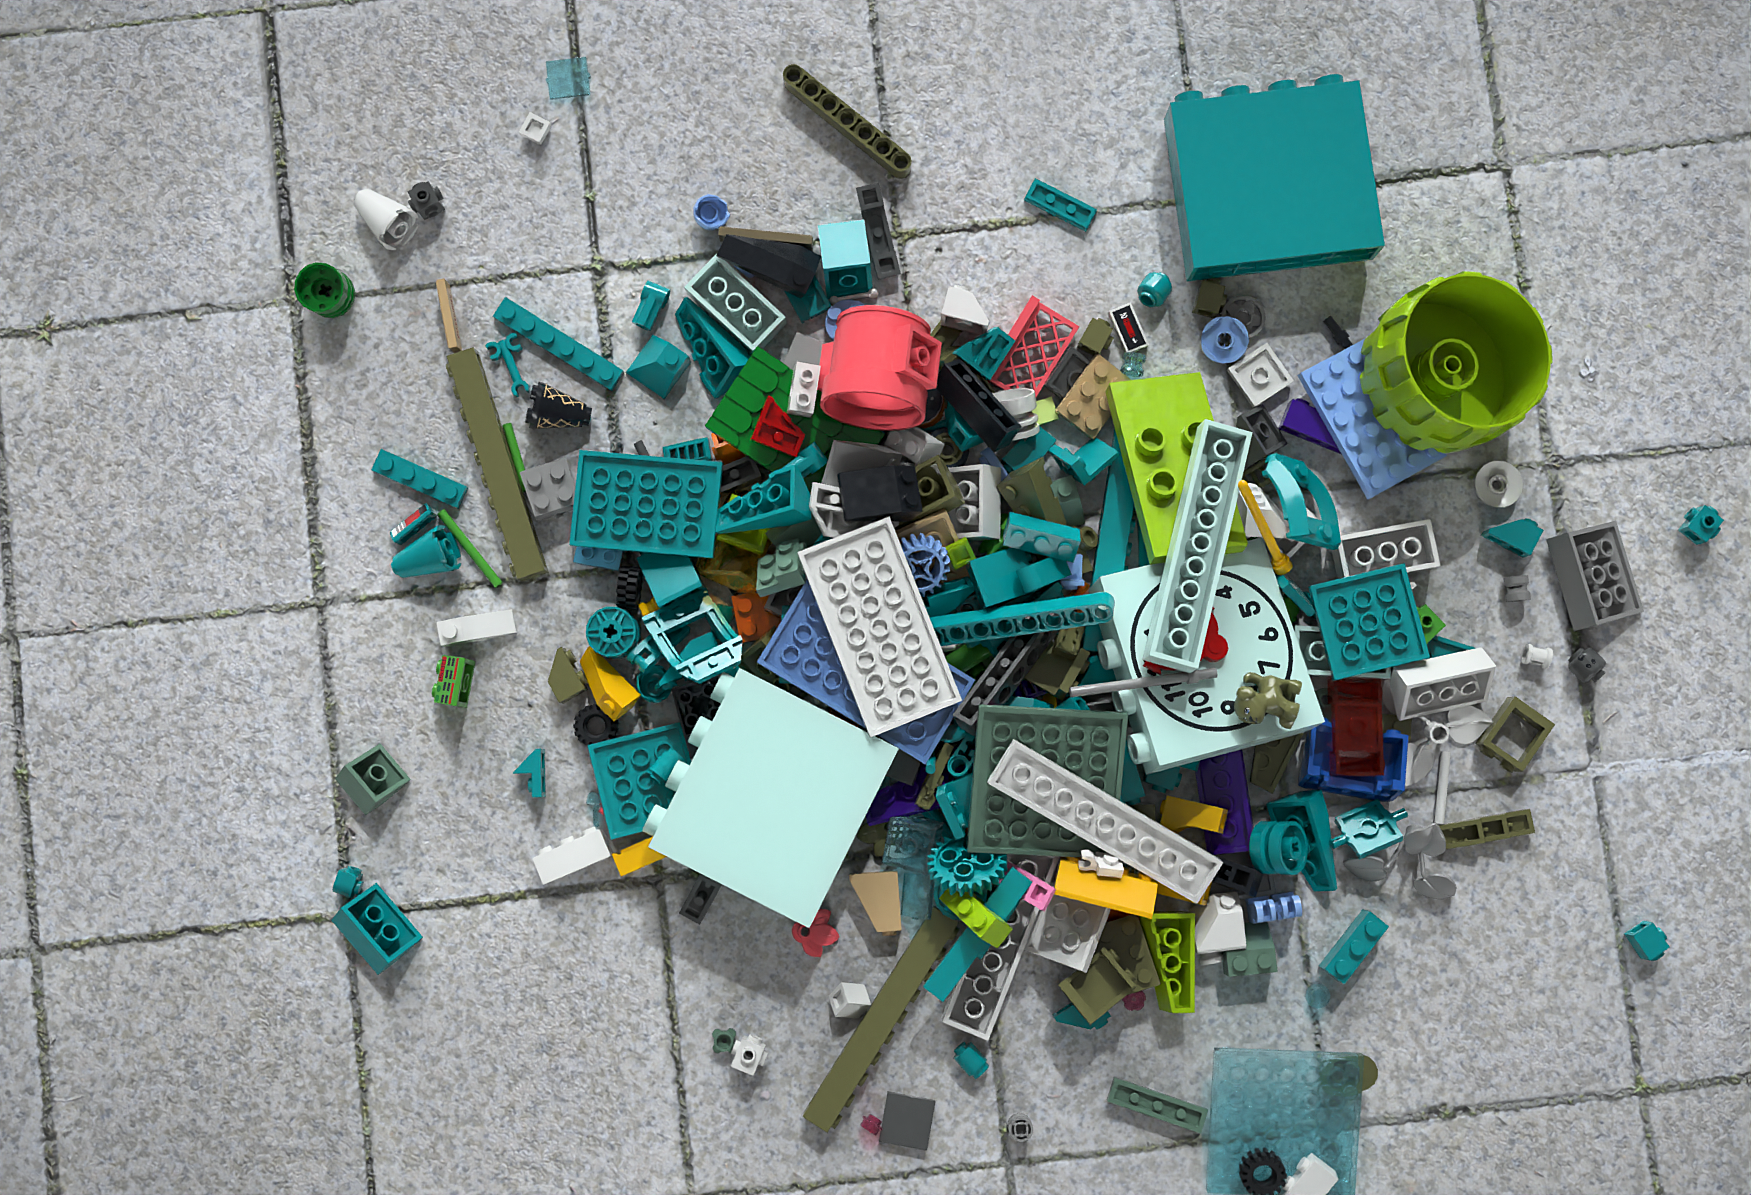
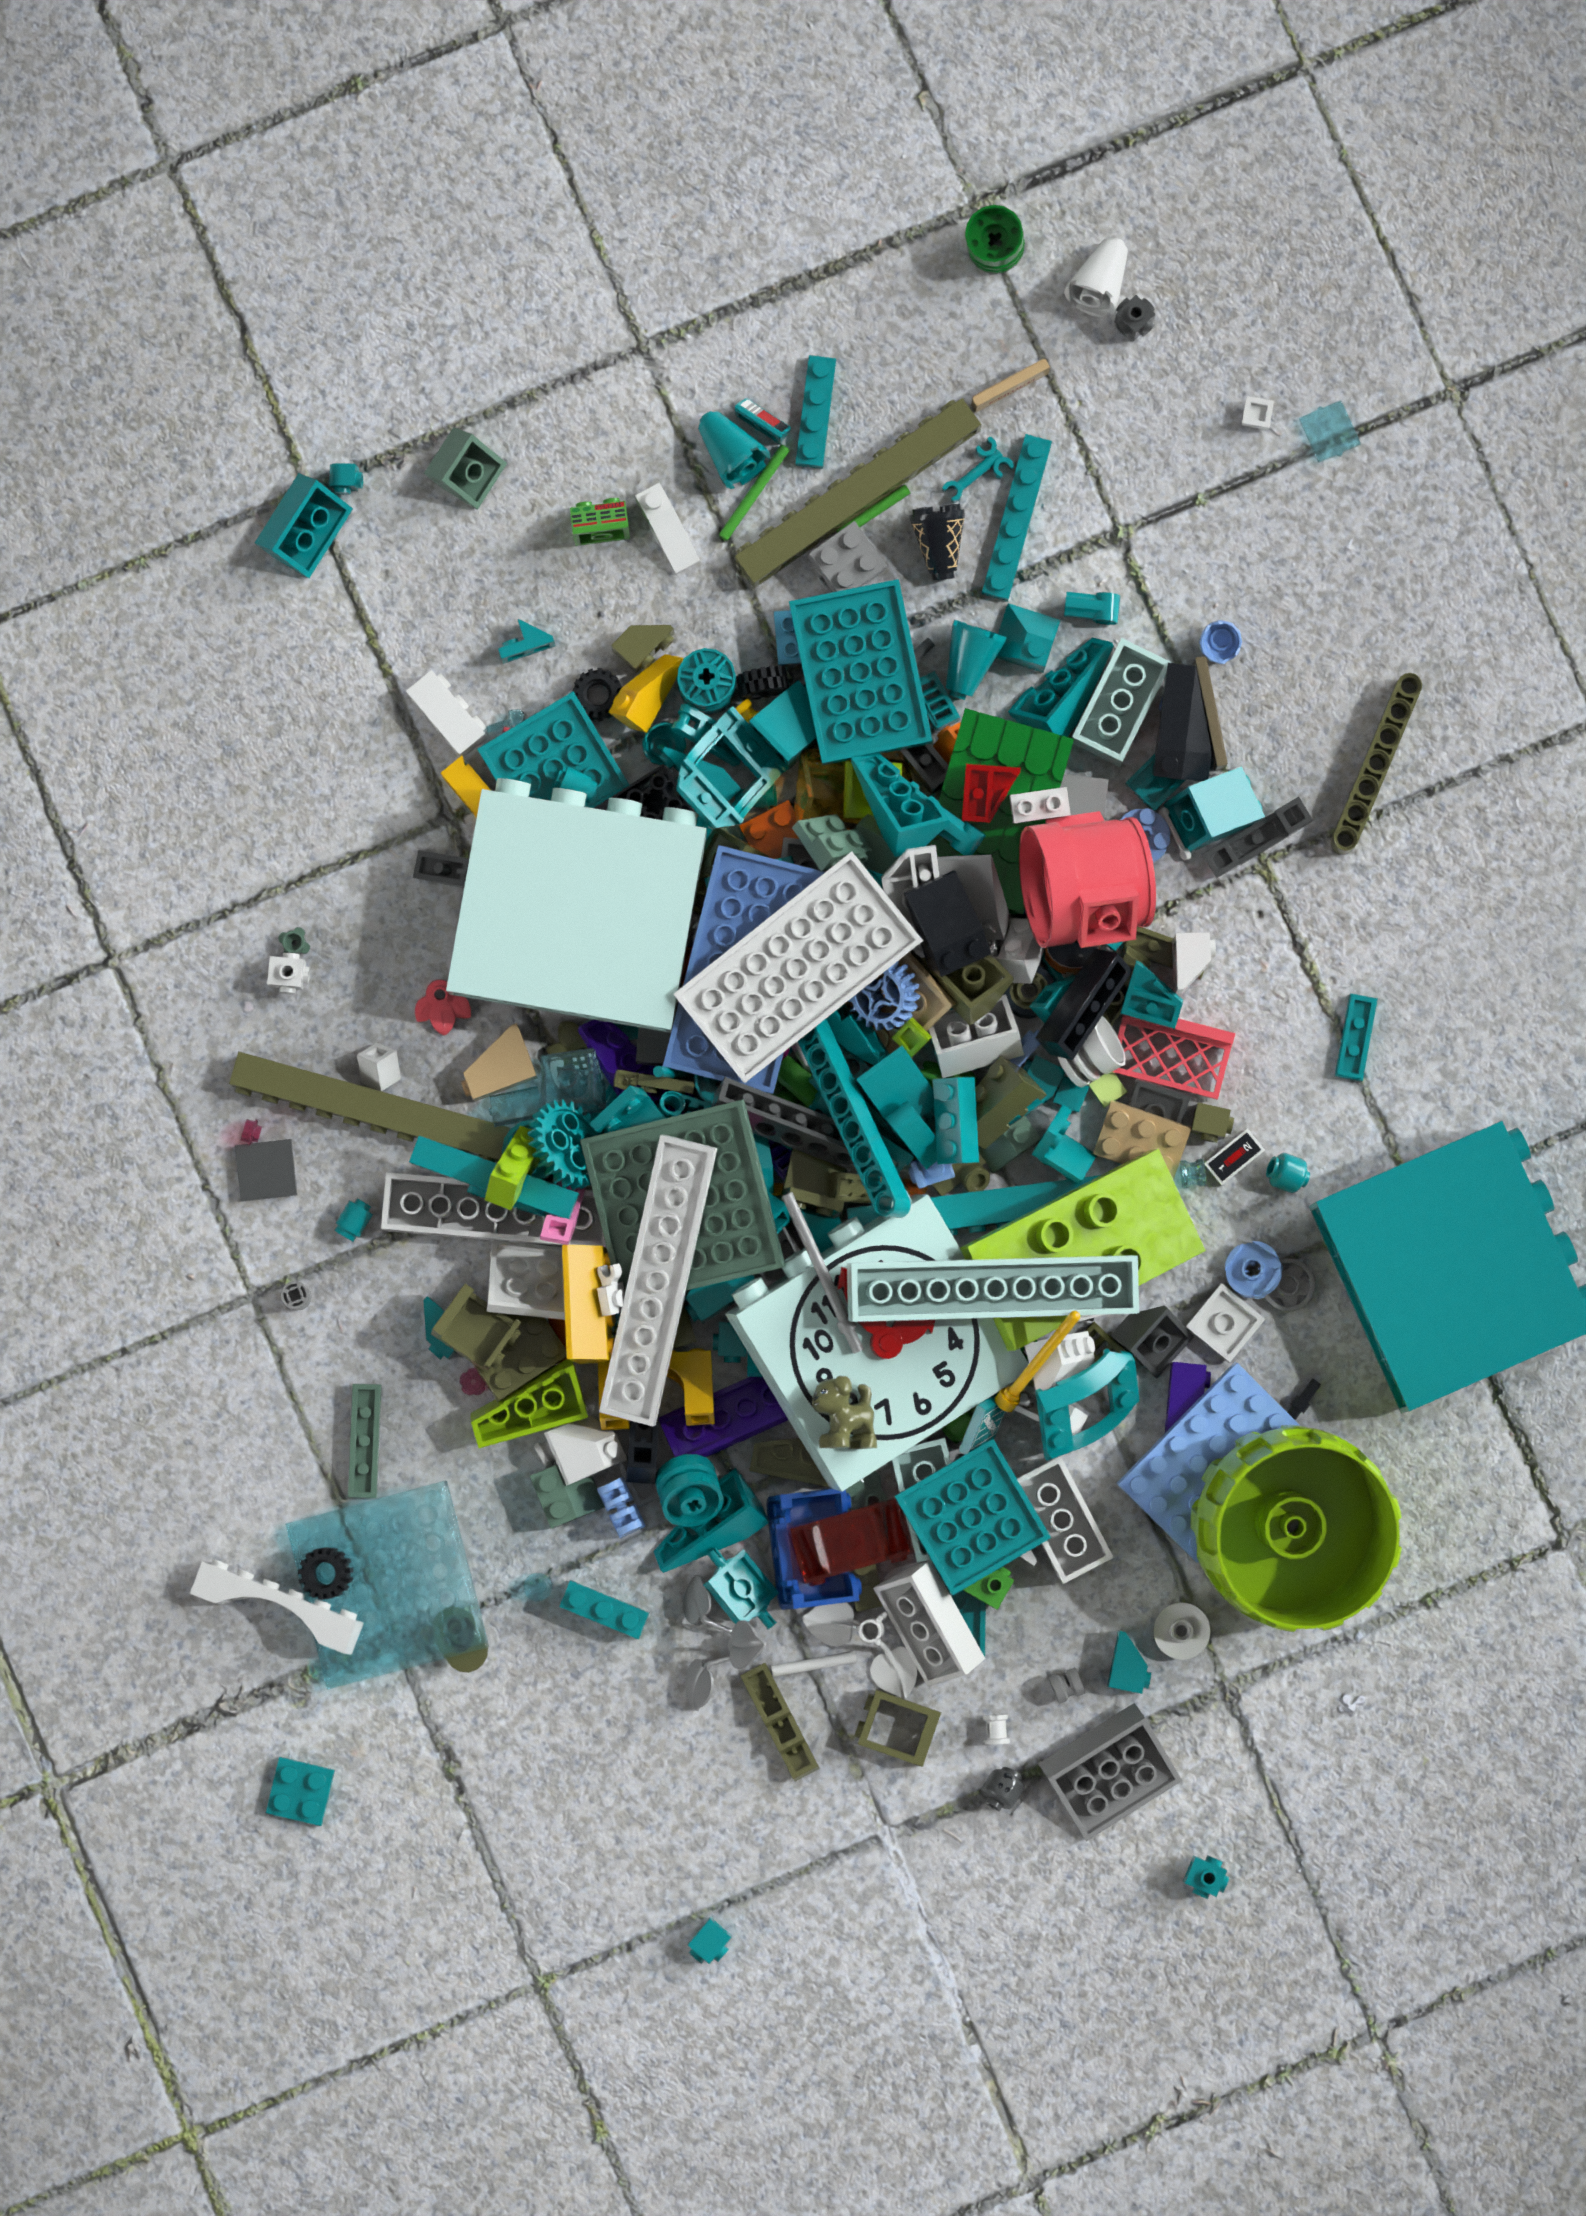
camera: 70 degrees right, 0 degrees up
(661, 414) = (970, 657): none -> teal cone
(1209, 298) = (1297, 1239): olive brick -> none

